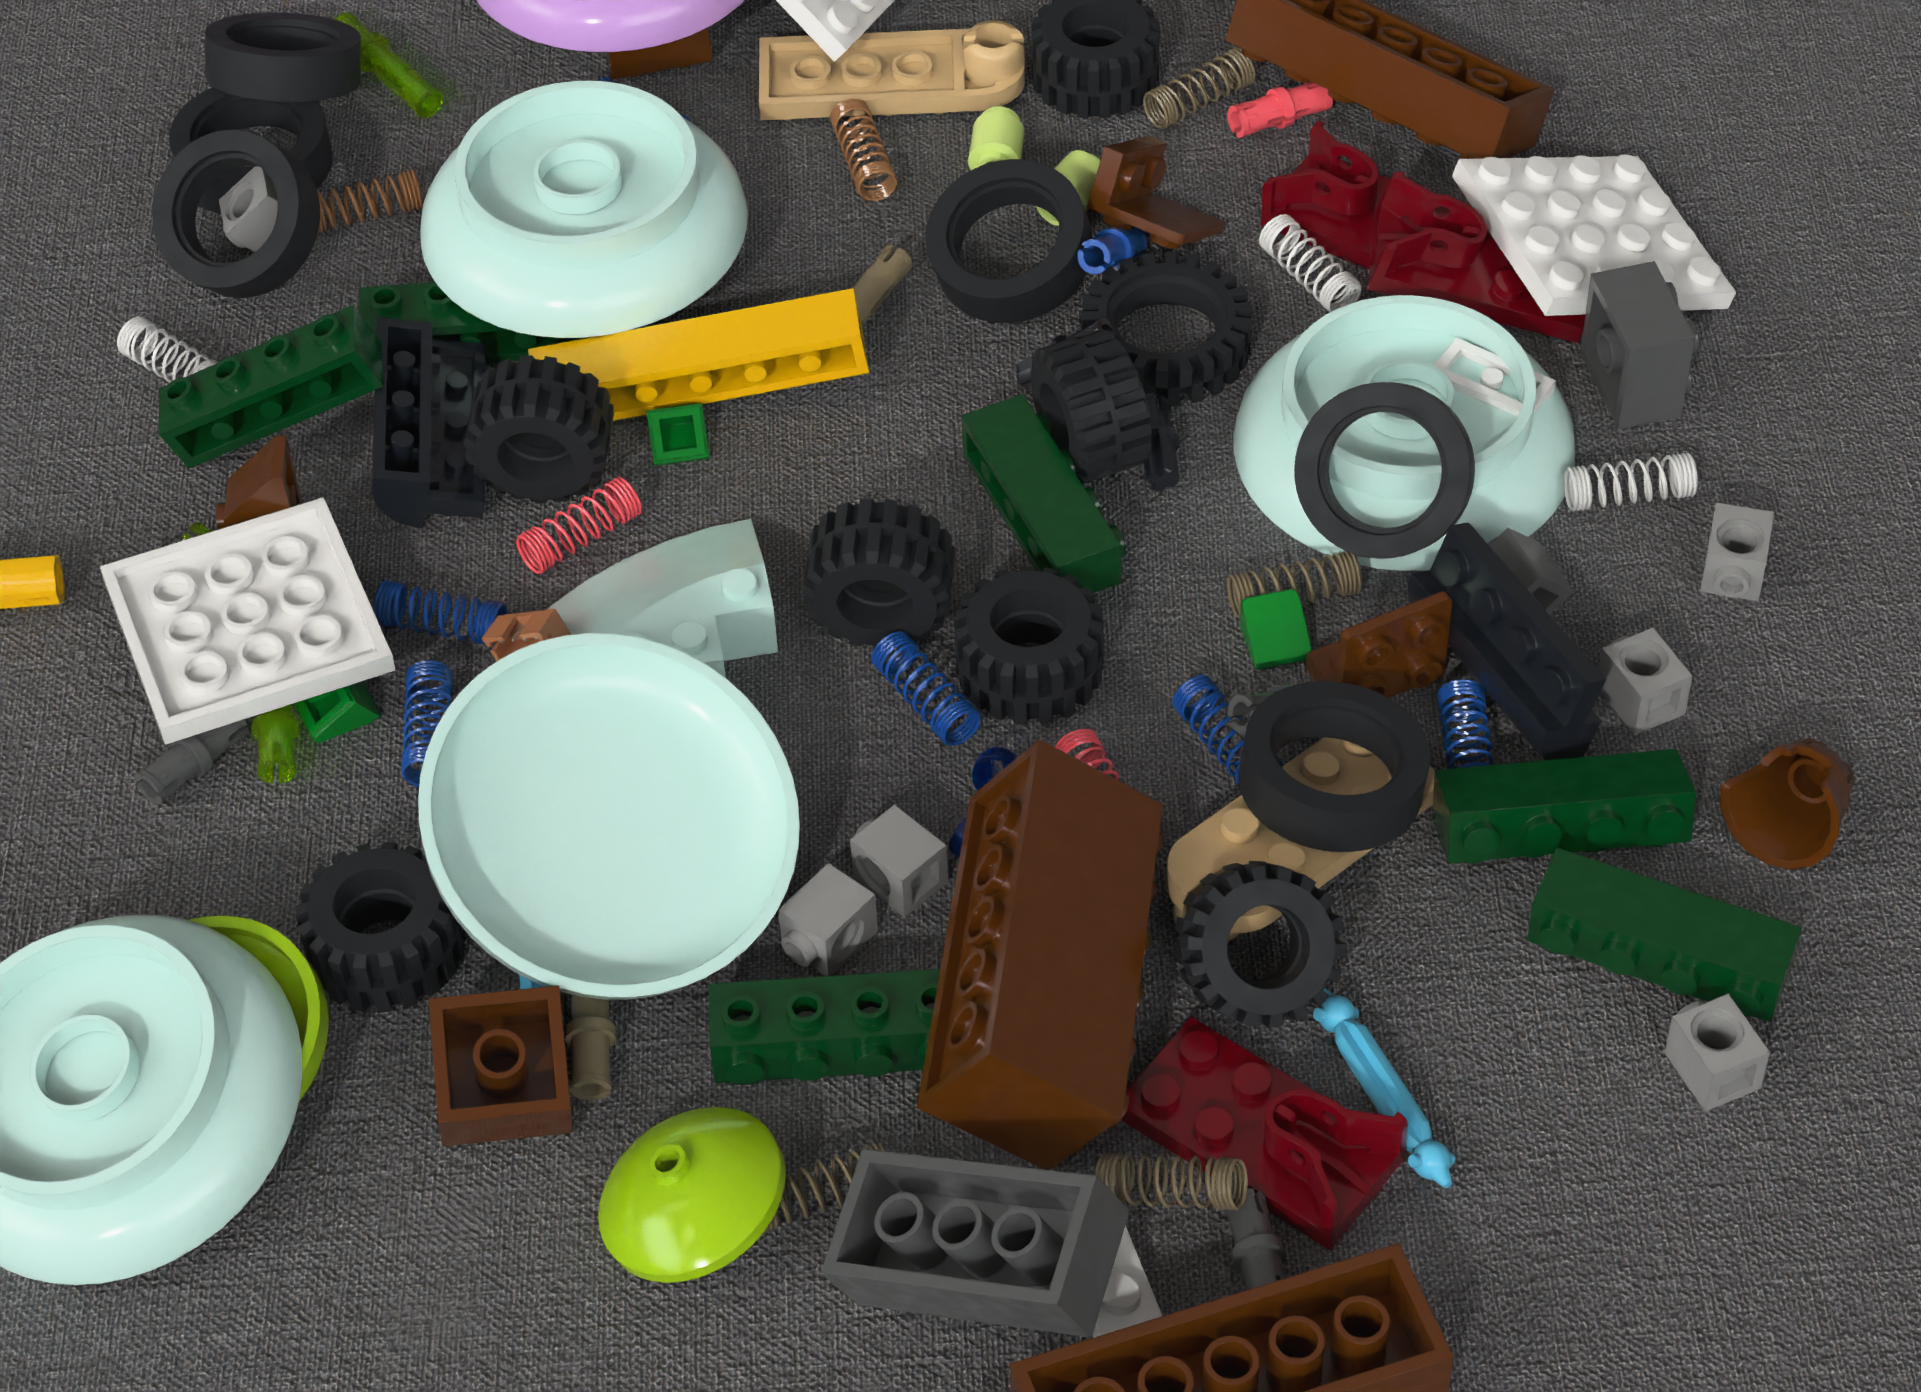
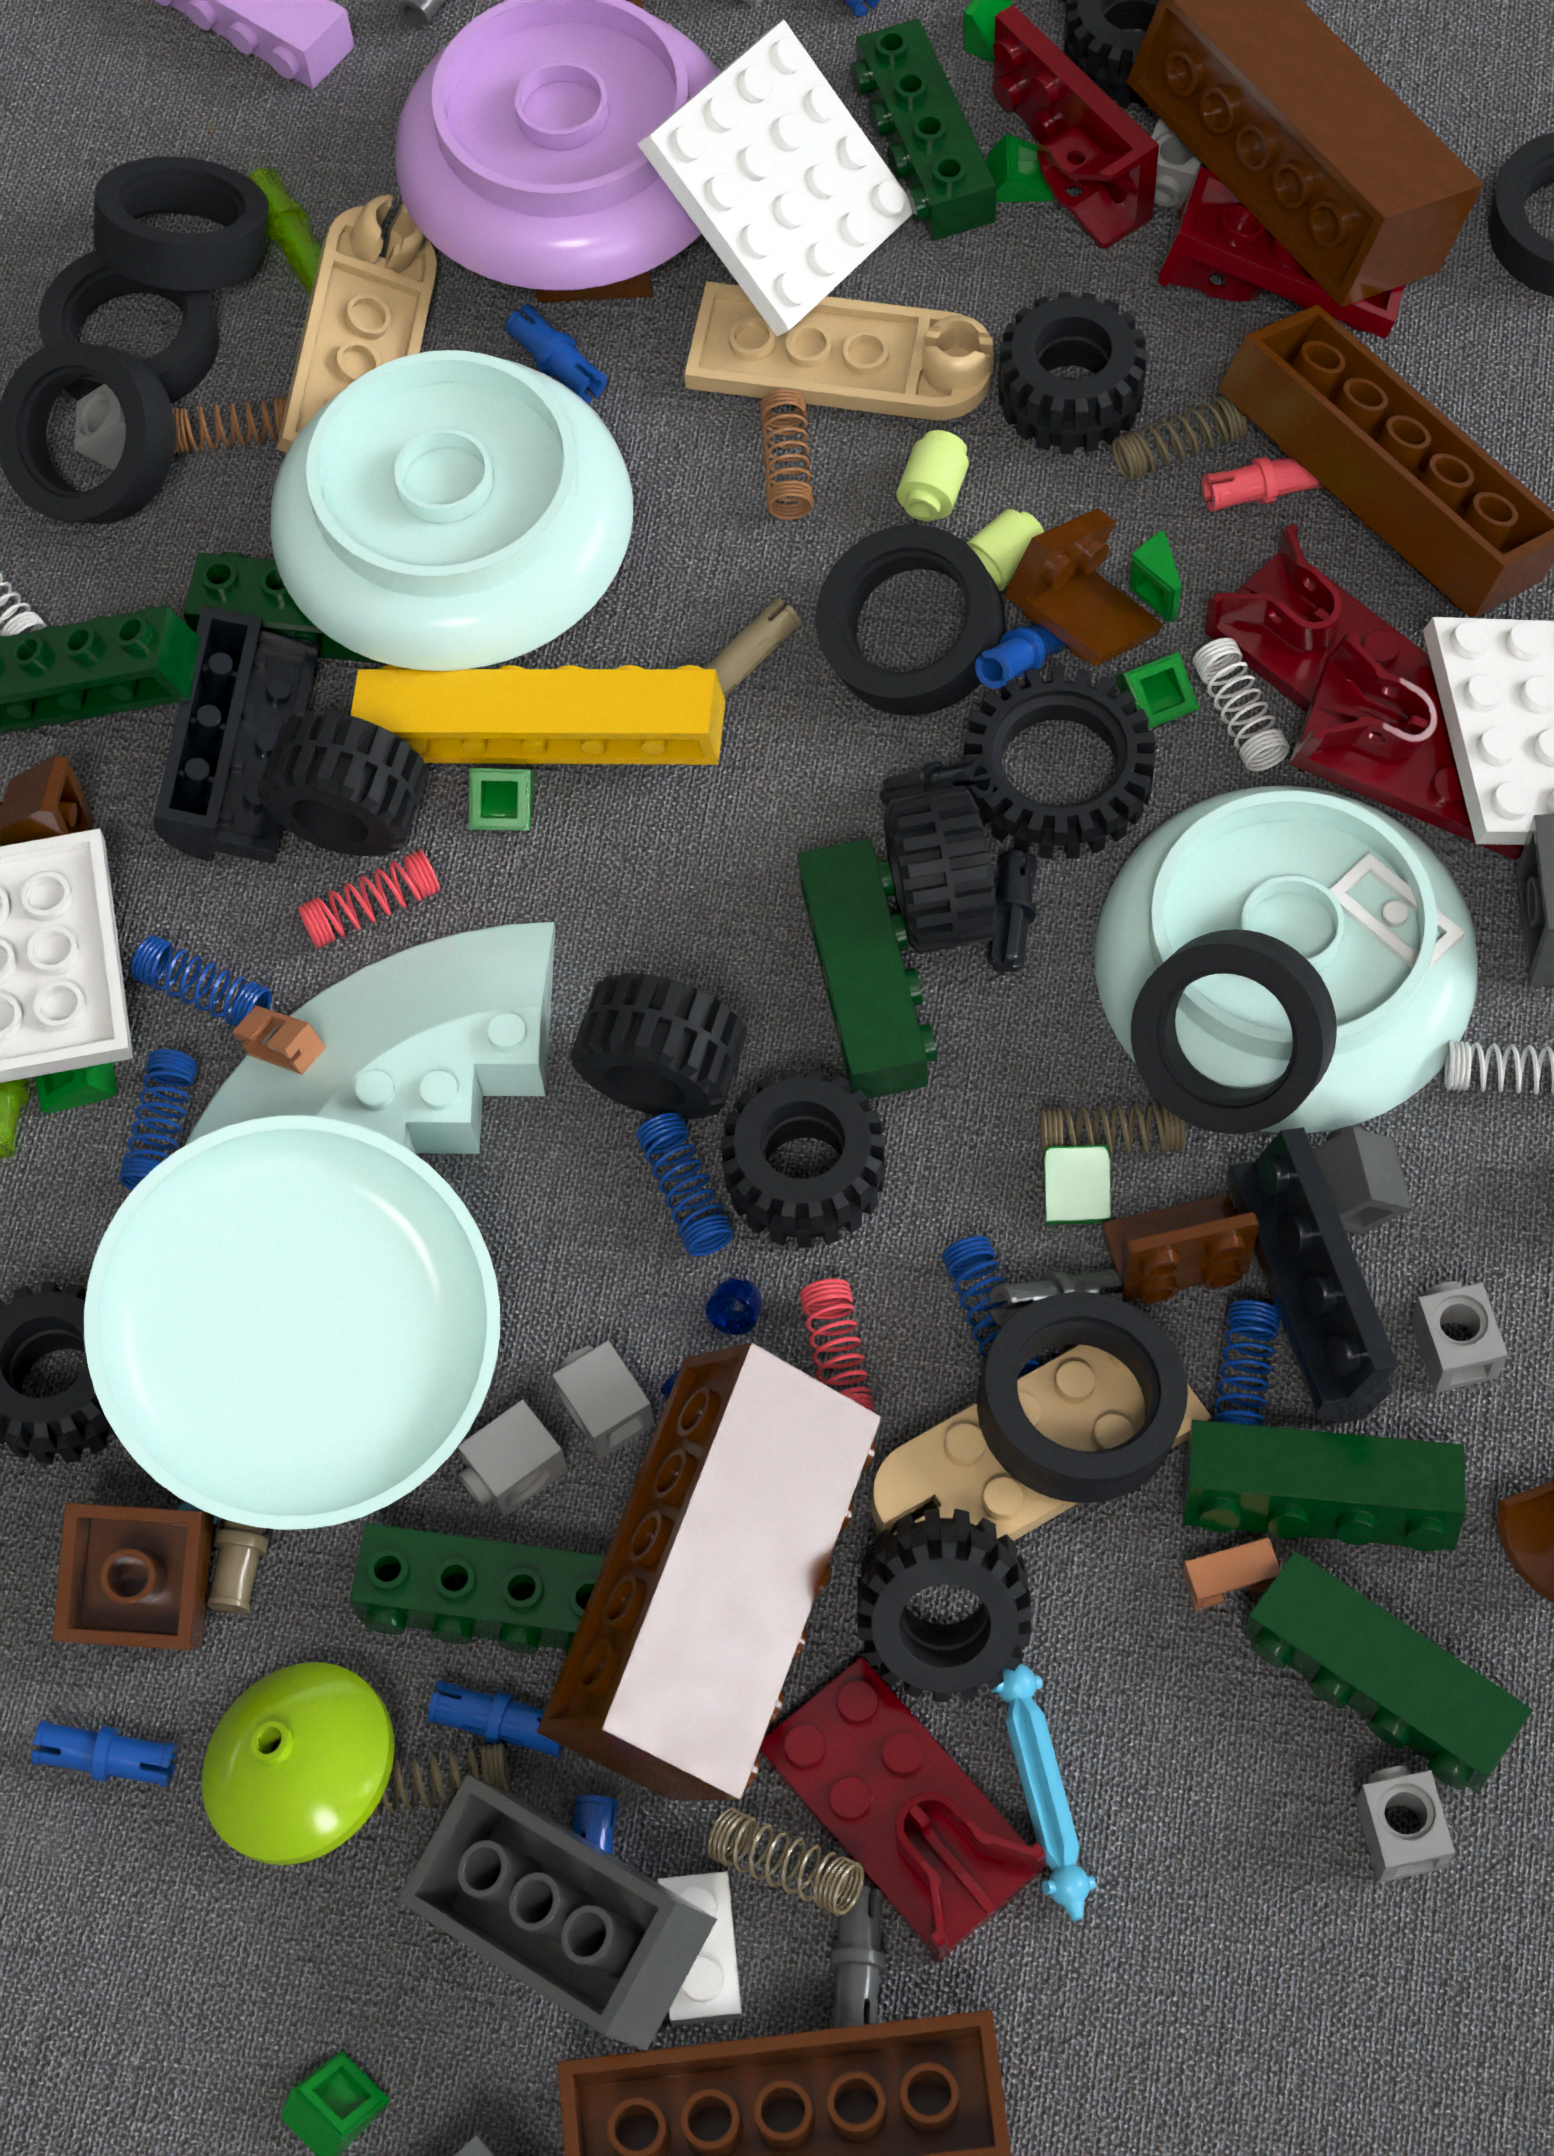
camera: 15 degrees right, 15 degrees up
(455, 88) = (359, 307): none -> tan plate
(503, 1226) = (104, 1753): none -> blue pin
(870, 1125) = (490, 1716): none -> blue pin
(1211, 185) = (1155, 577): none -> green slope
(1242, 260) = (1159, 688): none -> green slope
(1510, 883) = (1228, 1570): none -> nougat piece

